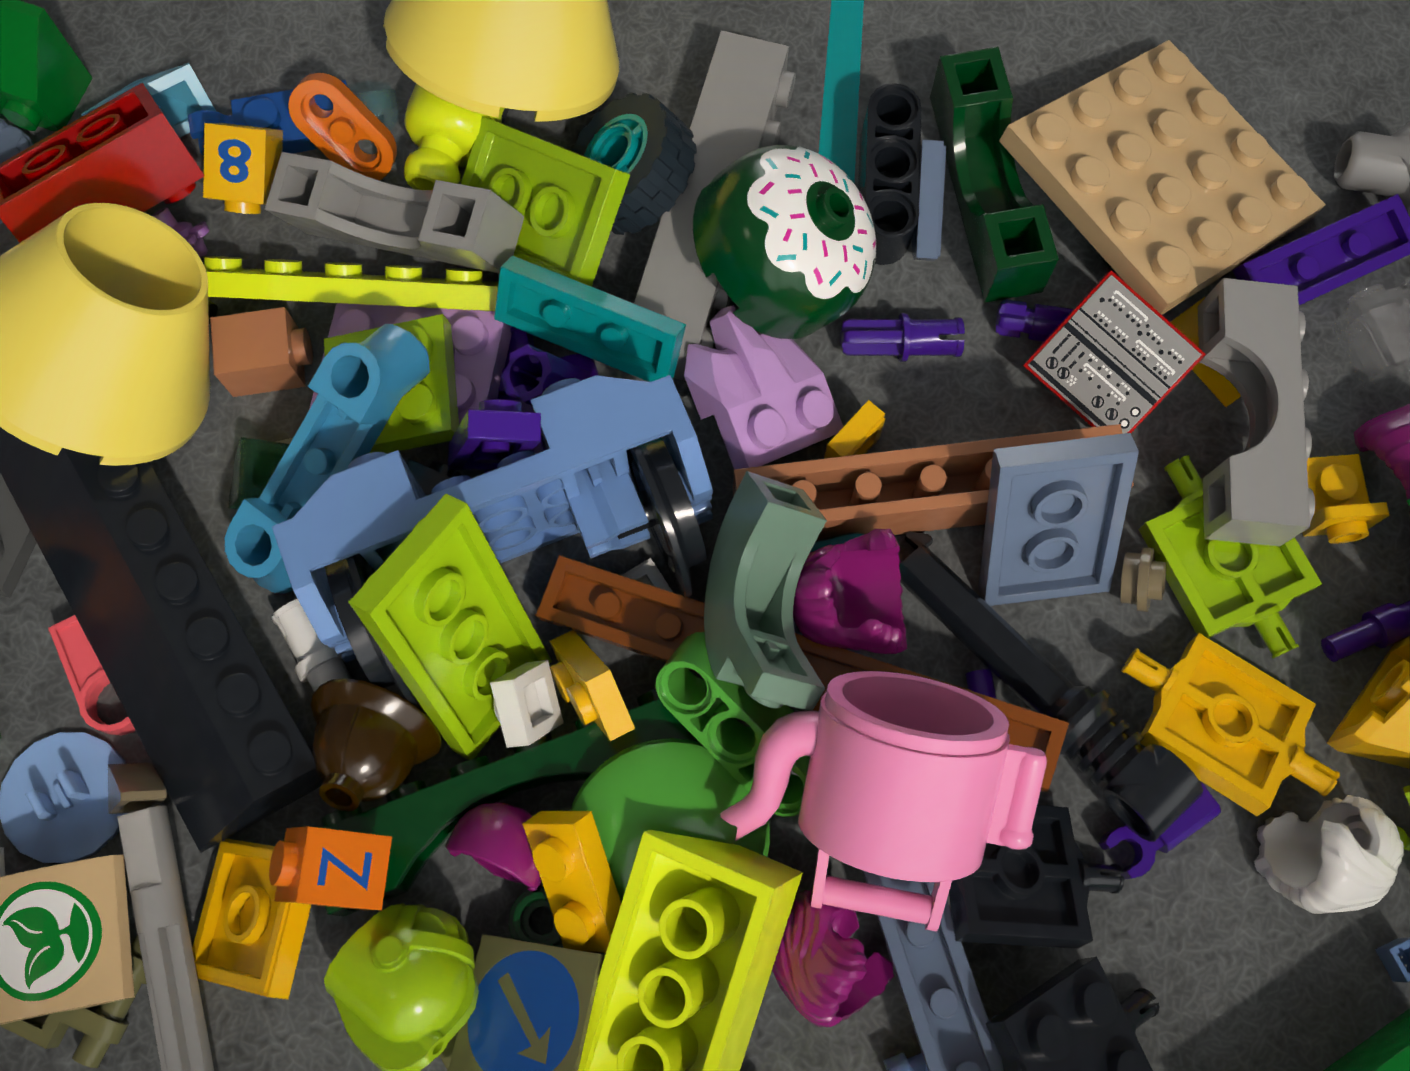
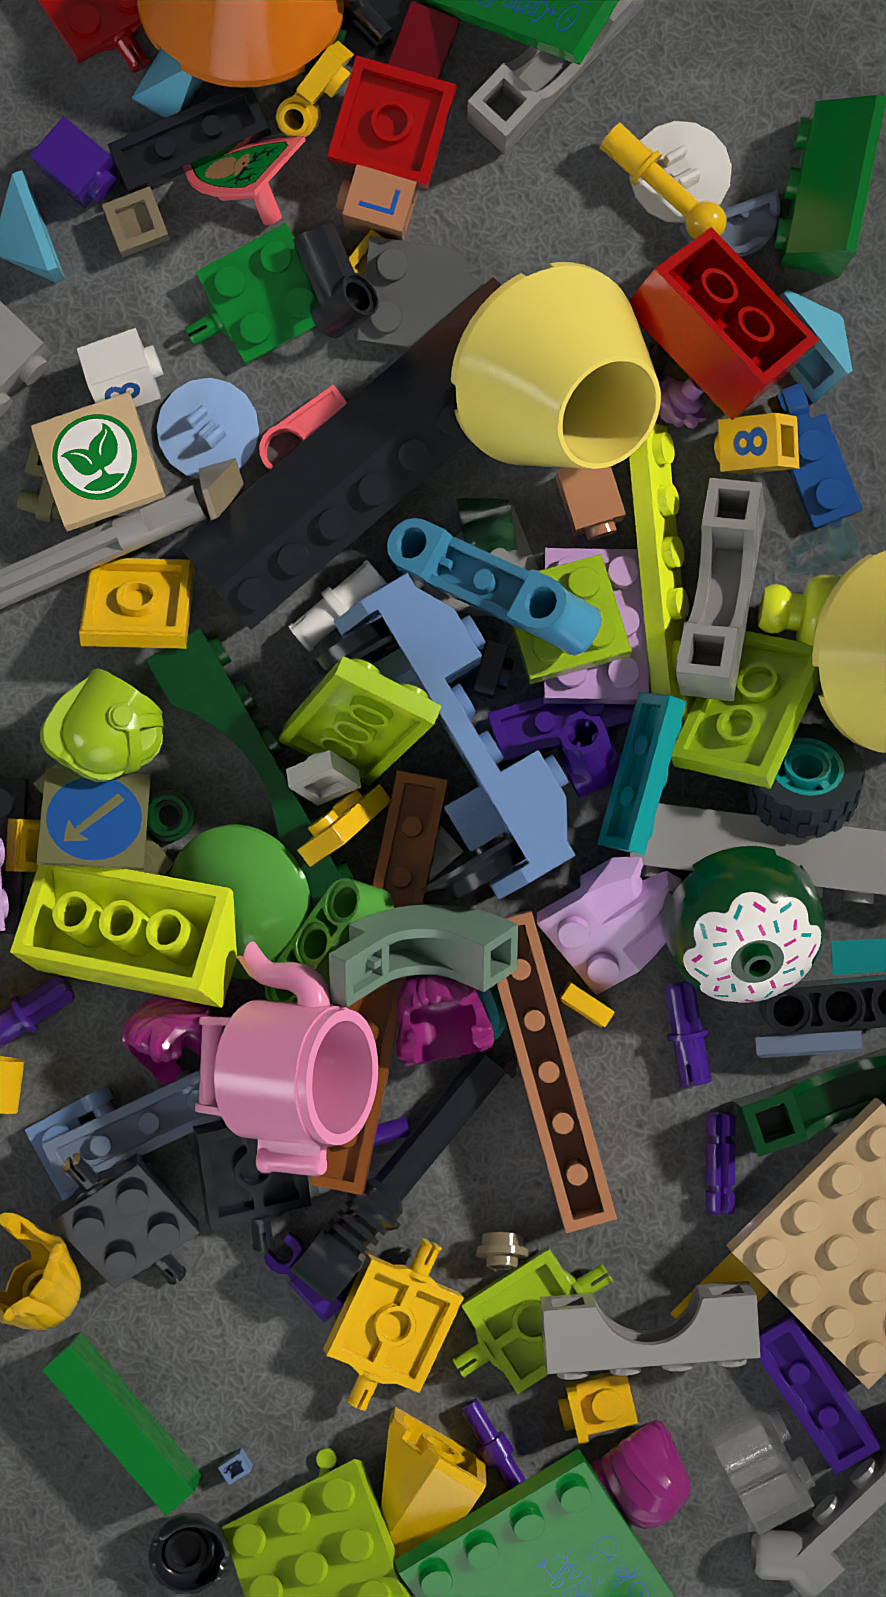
camera: 85 degrees right, 15 degrees up
(330, 868) = (172, 662): orange brick -> none
(340, 129) = (809, 516): orange plate -> none
(366, 741) = (272, 661): dark brown hat -> none
(492, 435) = (513, 719): dark purple plate -> none
(497, 841) = (218, 778): magenta hair -> none
(575, 877) = (196, 839): yellow plate -> none
(1055, 518) = (526, 1172): sand blue plate -> none
(1113, 357) = (685, 1211): light grey tile -> none
(1334, 860) = (298, 1407): white hair -> none

